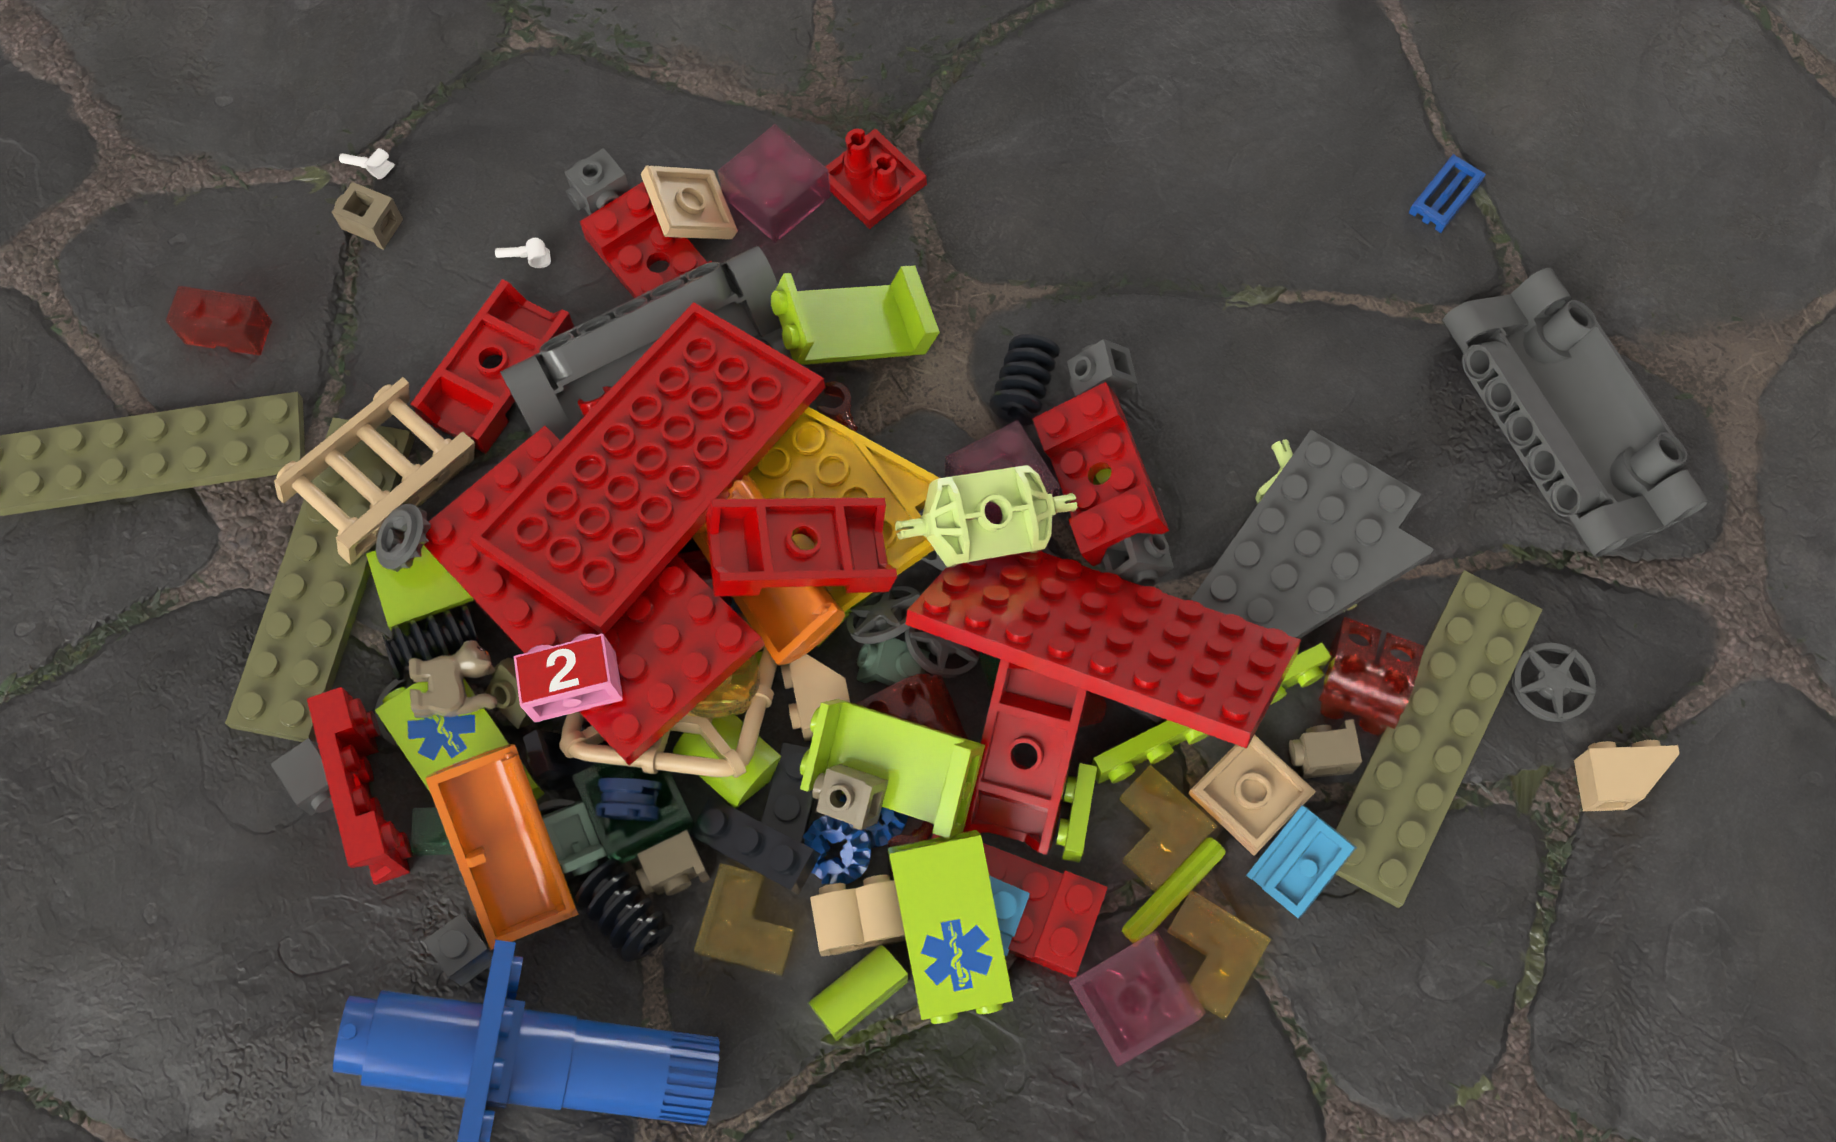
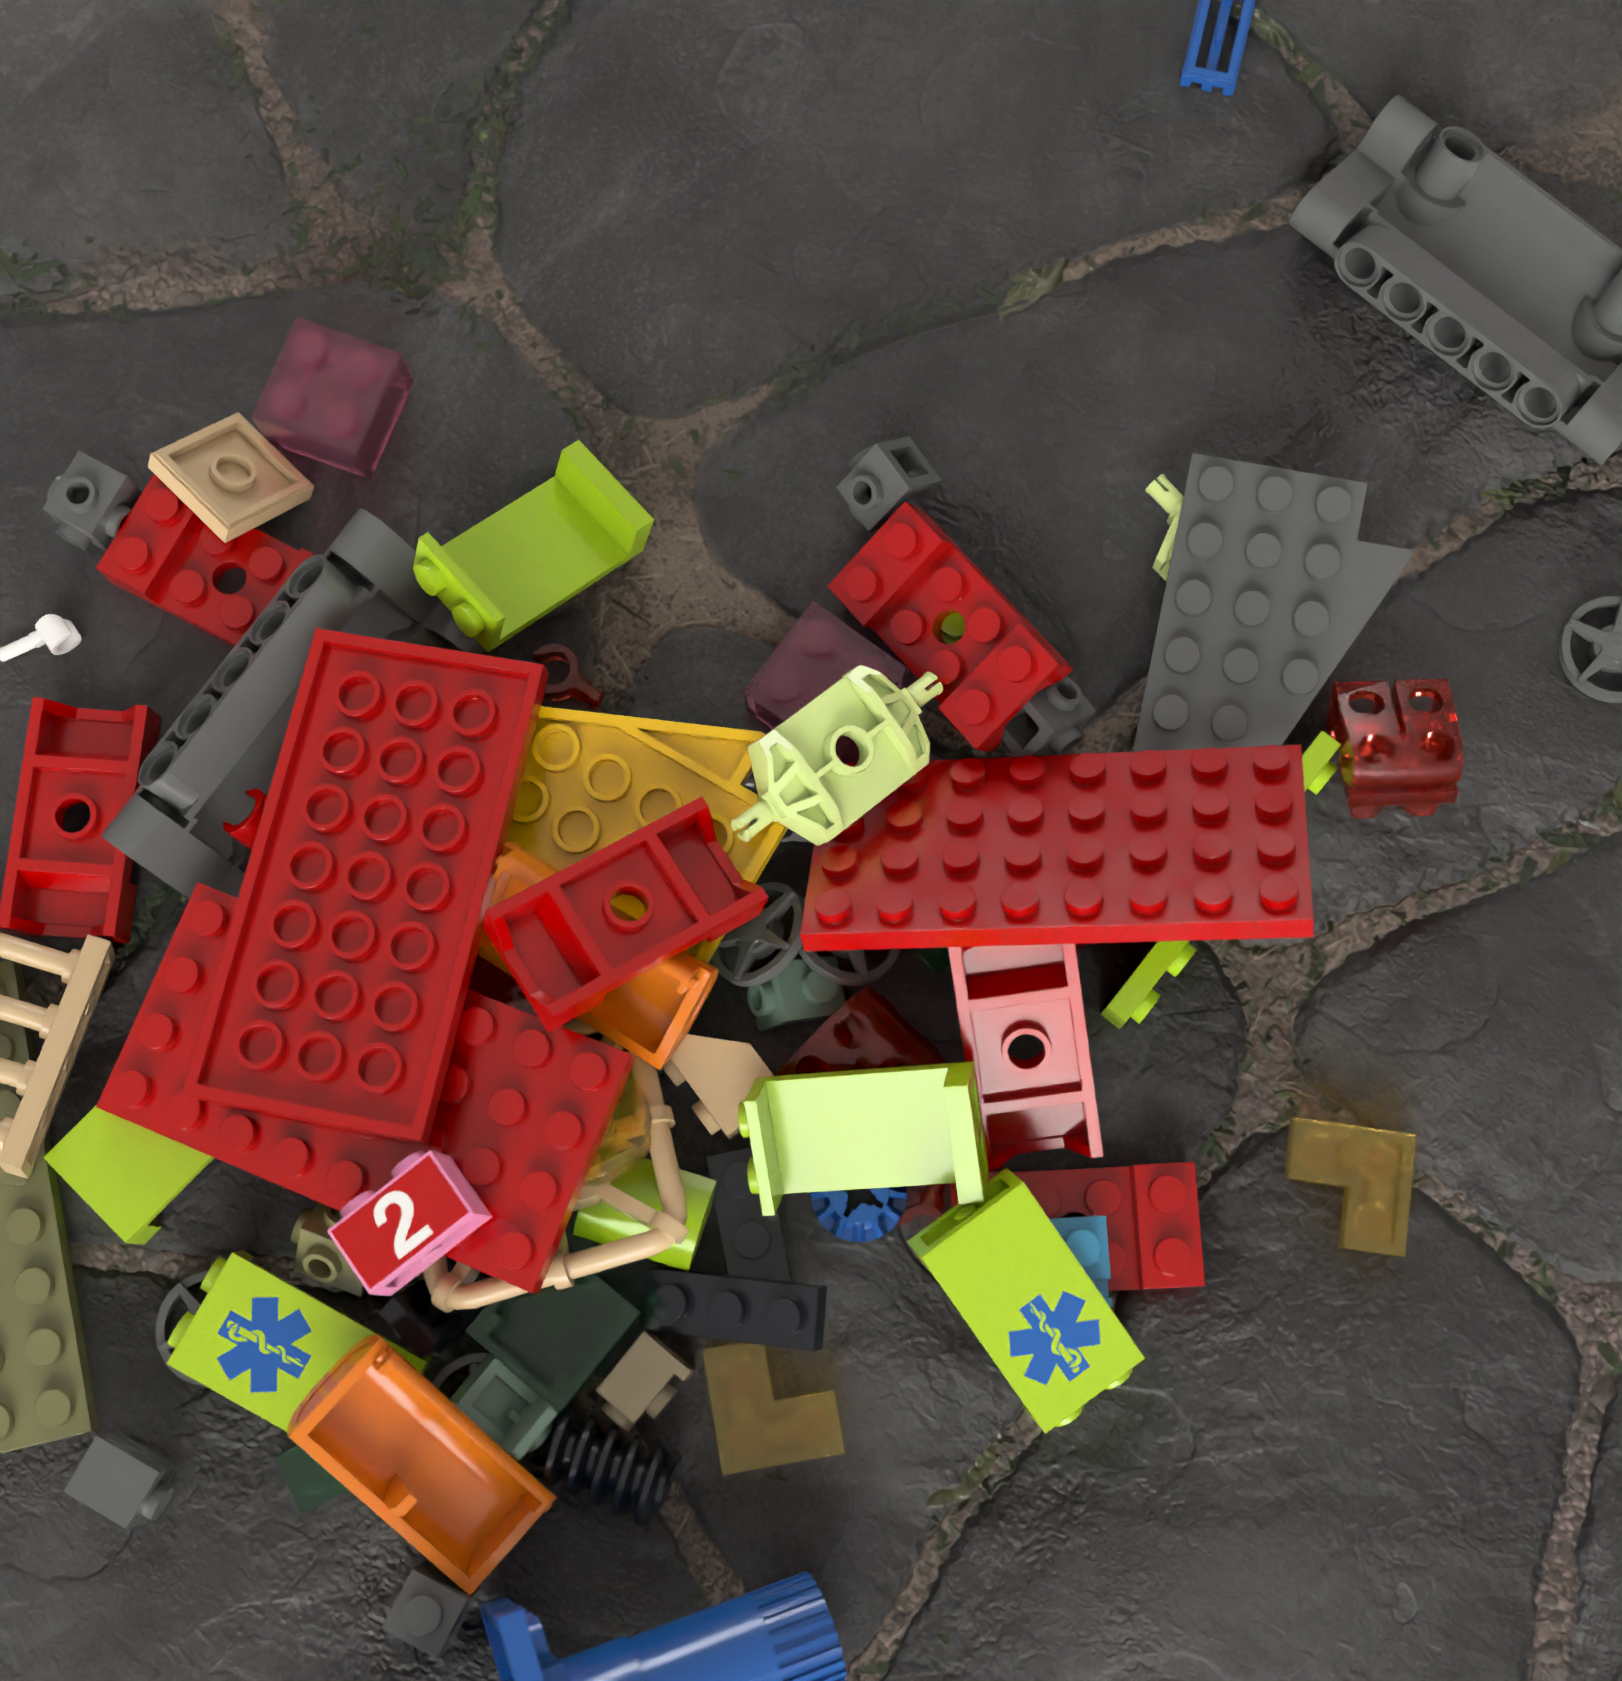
camera: 20 degrees left, 10 degrees up
(344, 738) = (135, 1408): red piece -> none
(391, 547) = (72, 1130): dark grey gear -> none
(429, 643) = (190, 1236): black piece -> none
(446, 687) = (244, 1289): dark tan animal -> none
(628, 799) = (552, 1329): dark blue wheel -> none
(855, 853) = (827, 1241): blue gear -> none
(857, 916) = (905, 1337): tan brick -> none
(859, 991) = (947, 1429): lime brick -> none
(863, 795) = (843, 1186): dark tan brick -> none
(873, 176) = (461, 332): red plate -> none
(1024, 378) = (786, 534): black piece -> none
(1073, 830) = (1119, 1107): lime plate -> none
(1137, 998) = (1293, 1286): clear pink brick -> none
(1174, 825) = (1241, 1047): clear yellow plate -> none
(1174, 890) = (1271, 1125): lime axle -> none
(1252, 793) = (1322, 974): tan plate -> none
(1301, 861) = (1412, 1021): dark azure plate -> none
(1326, 751) = (1381, 865): dark tan brick -> none
(1424, 759) = (1500, 837): olive plate -> none

